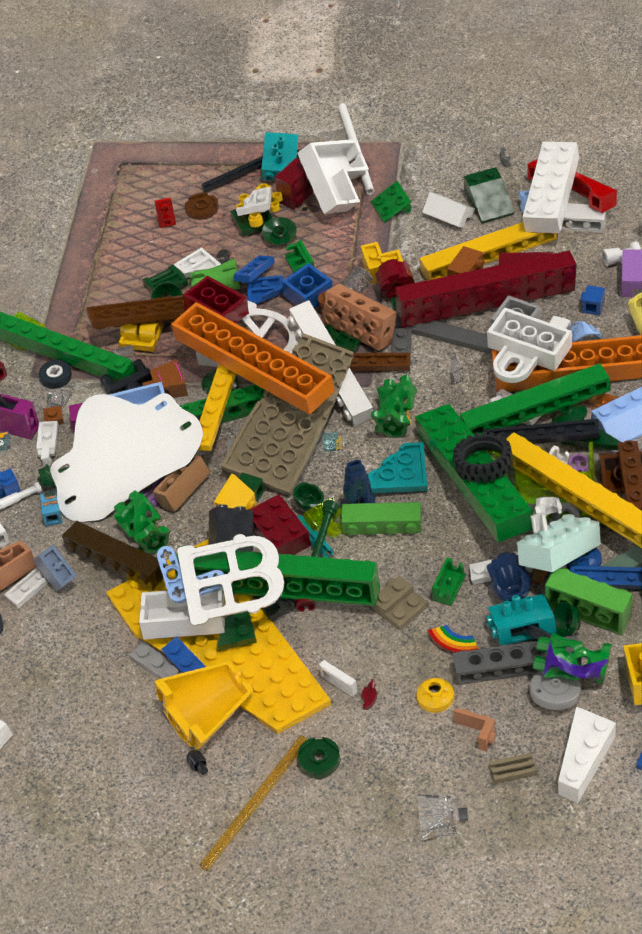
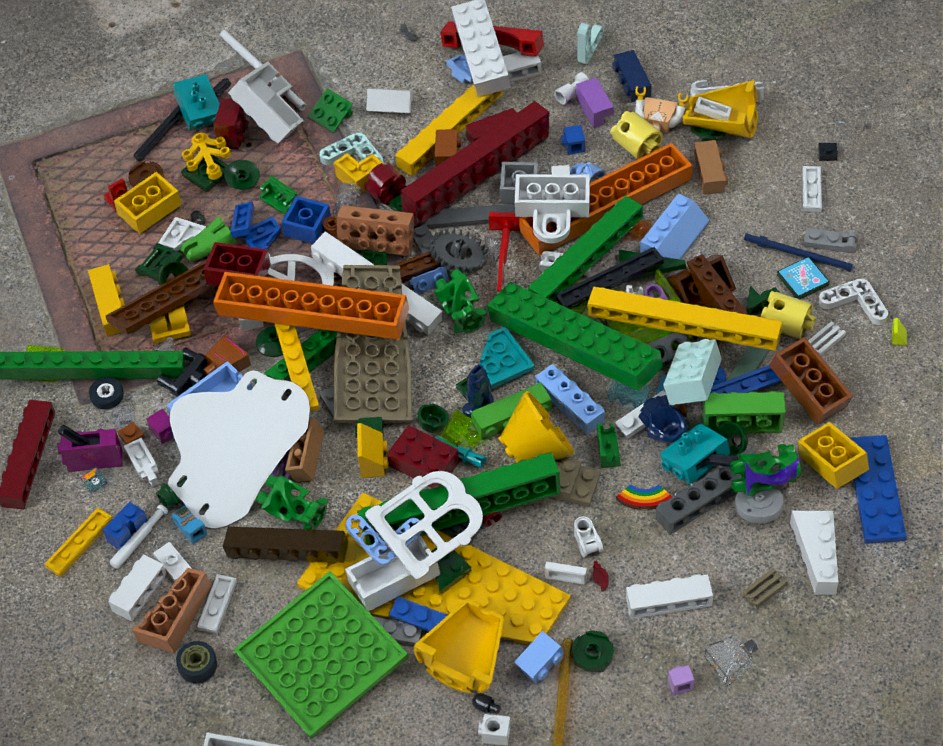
camera: 30 degrees left, 5 degrees up
(19, 531) = (172, 560): none -> white plate
(54, 567) = (237, 580): sand blue hinge -> none
(85, 659) = (321, 654): none -> bright green plate
(105, 289) = (106, 294): none -> yellow brick
(185, 227) = (147, 202): none -> yellow brick
(192, 794) = (499, 737): none -> white brick
(229, 522) = (385, 475): black brick -> none
(257, 202) = (206, 153): white wing -> none
(266, 741) = (539, 657): none -> light blue brick
(329, 510) = (464, 422): dark green piece -> none
(333, 441) = (420, 357): clear light blue tile -> none
(376, 378) = (427, 281): none -> medium blue hinge
(376, 656) = (588, 539): none -> white piece
(379, 816) = (681, 680): none -> lavender plate
(386, 540) = (532, 432): none -> yellow cone
(395, 241) = (355, 147): none -> light aqua beam
(417, 737) = (669, 596): none -> white brick
(425, 355) = (459, 244): none -> dark grey gear
(437, 701) = (657, 558): yellow piece -> none
(440, 527) = (570, 399): none -> light blue brick
(480, 352) = (506, 223): none -> red piece
(480, 722) = (714, 559): nougat bracket -> none
(483, 471) = (587, 335): black tyre -> none
(488, 195) = (418, 73): slope -> none
(492, 545) = (626, 394): none -> clear light blue plate
(543, 507) = (661, 342): white piece -> none
(570, 413) = (619, 252): dark green dish -> none

